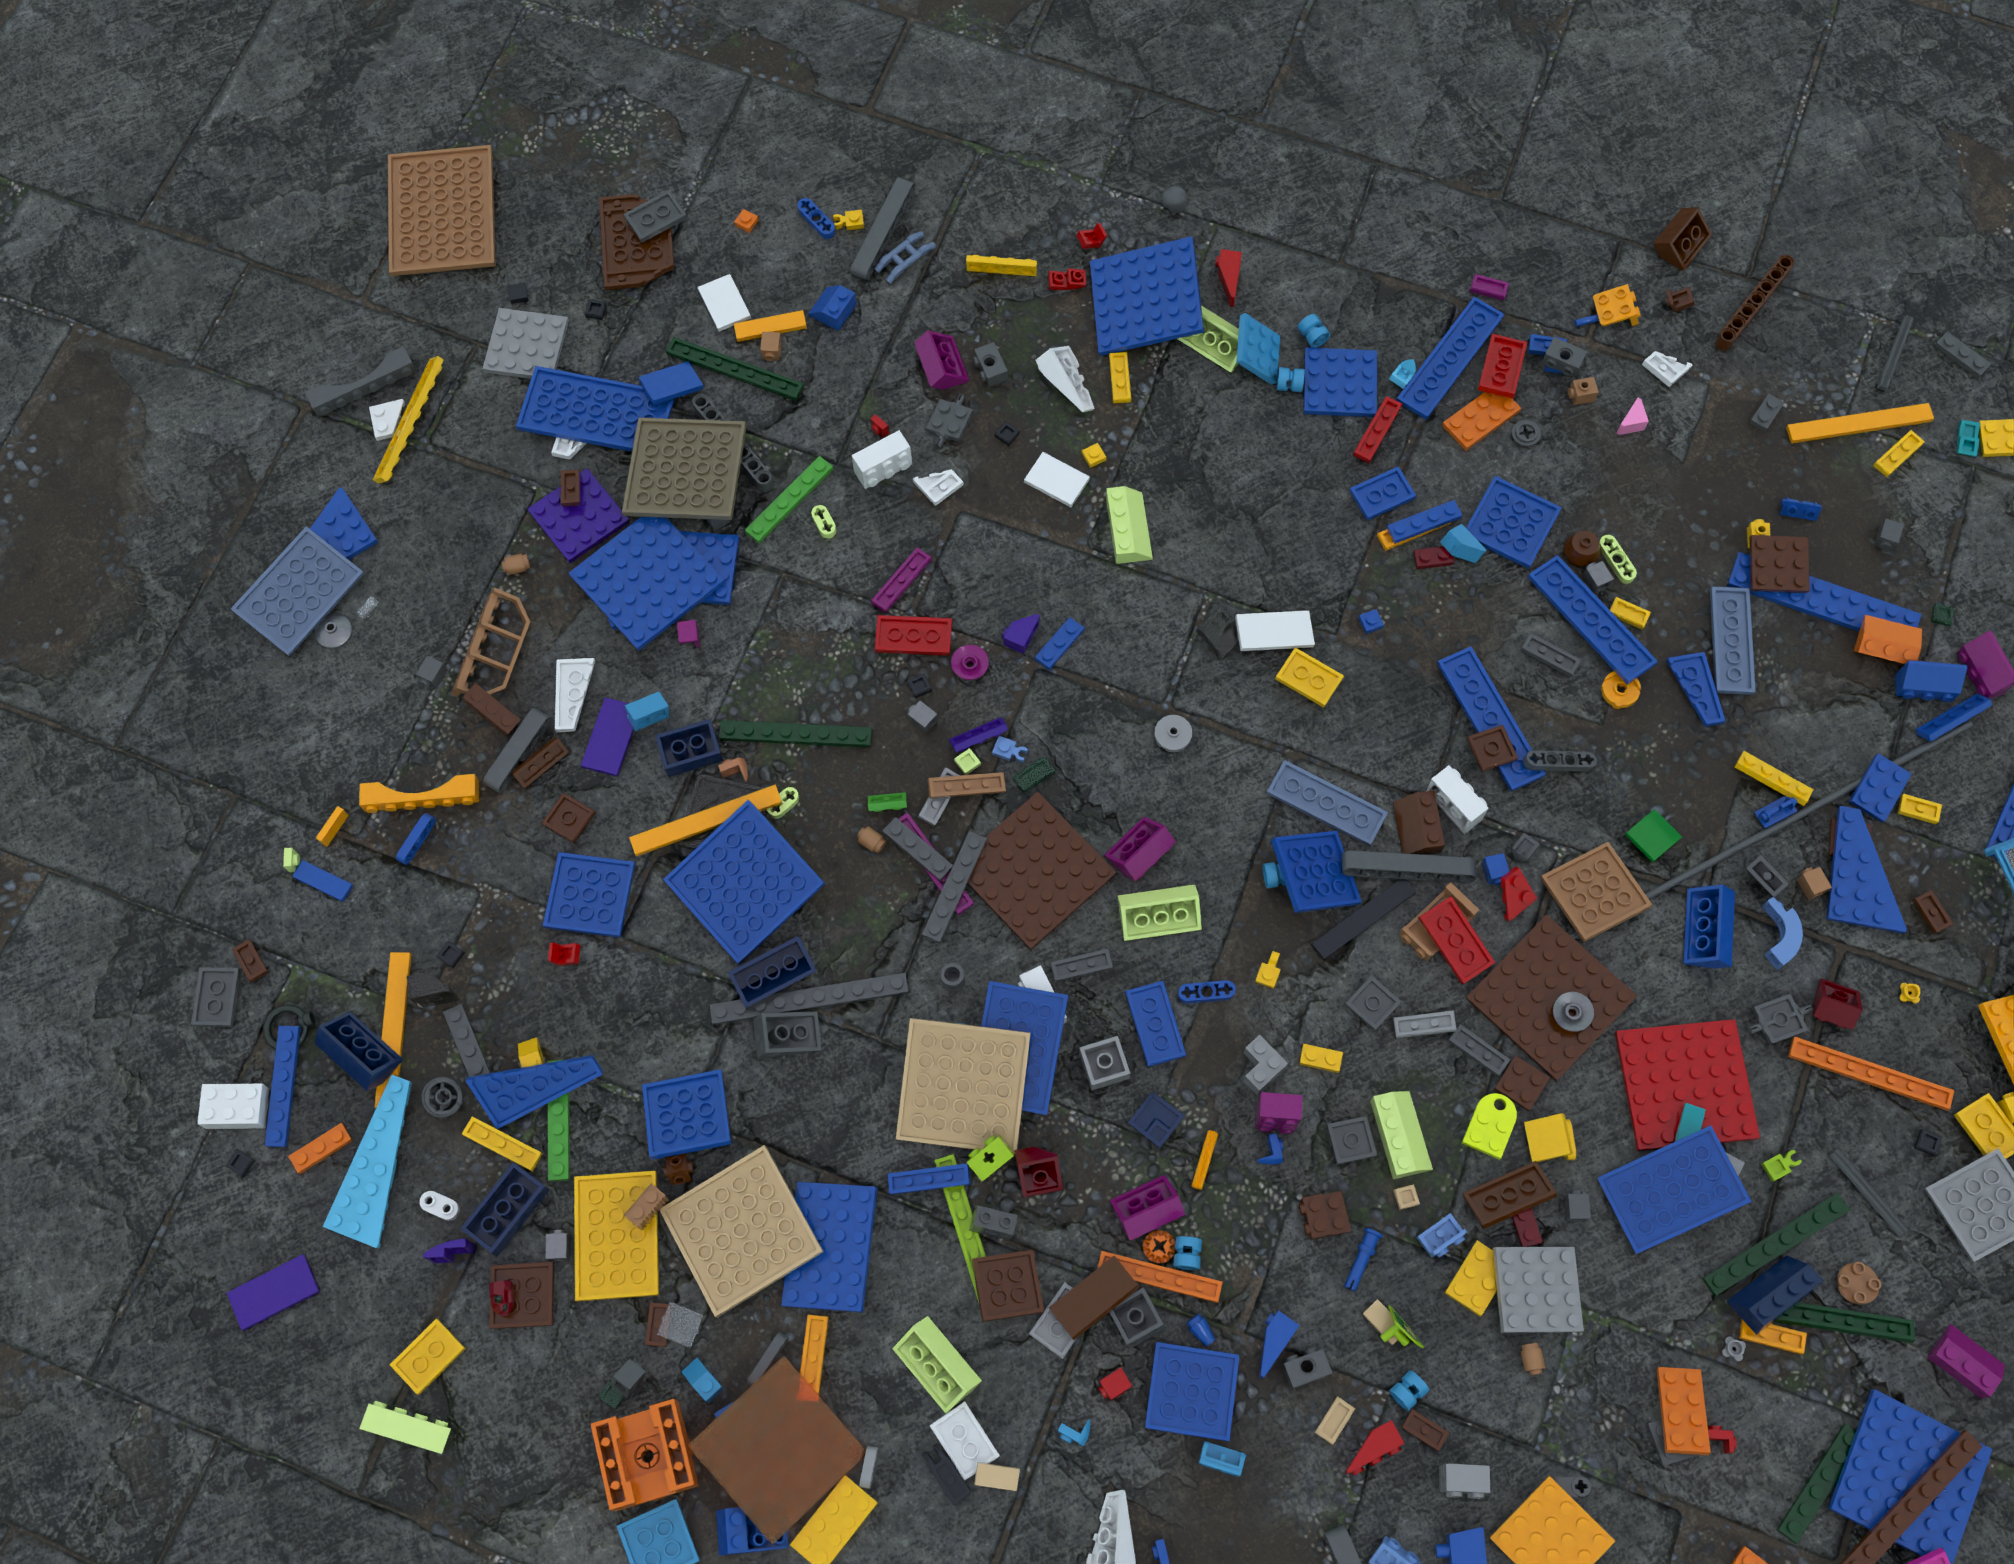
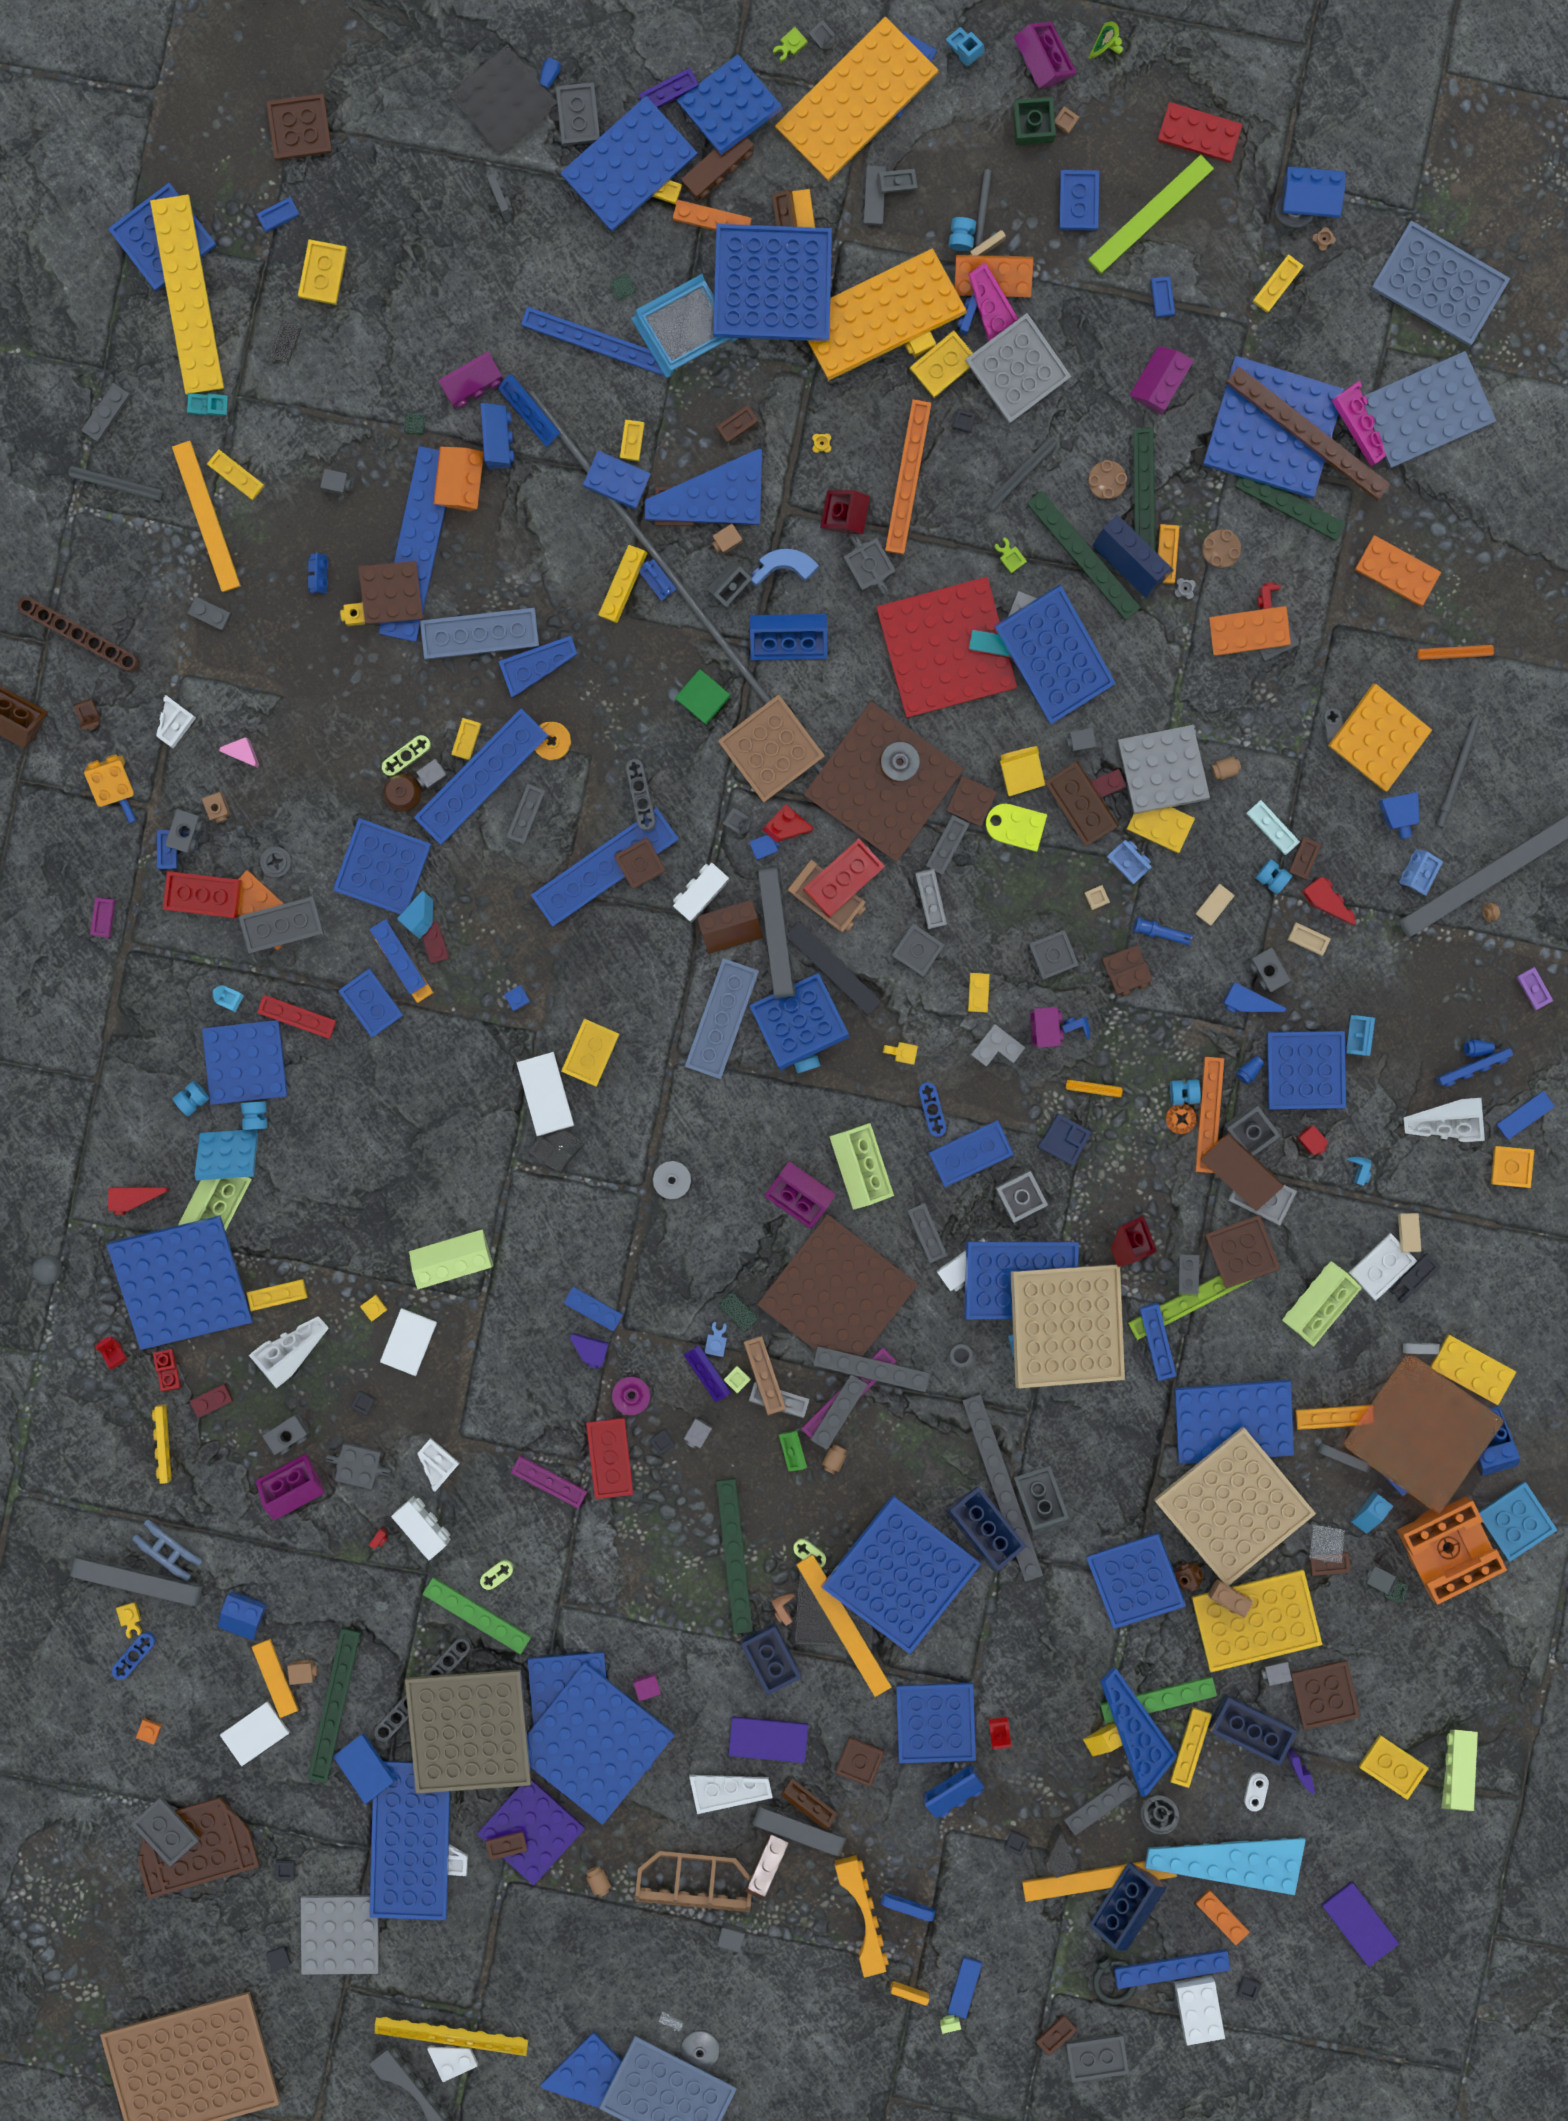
camera: 100 degrees left, 20 degrees up
(502, 1297) = (1332, 1711): dark red rock -> none
(516, 898) = (953, 1792): none -> blue slope
(647, 711) = (737, 1709): dark azure hinge -> none
(984, 1168) = (1129, 1288): lime brick -> none
(1032, 311) = (211, 1400): none -> dark red plate
(1147, 1207) = (1148, 1135): magenta slope -> none
(1395, 1330) = (1220, 889): lime shield -> none
(1401, 1134) = (1039, 908): yellowish green slope -> none
(1450, 358) = (197, 950): blue plate -> none
(1462, 1401) = (1272, 827): none -> light aqua tile
(1464, 1479) = (1345, 819): light grey brick -> none
(1467, 425) = (281, 925): none -> dark grey plate
(1776, 1396) = (1221, 548): none -> medium nougat dish

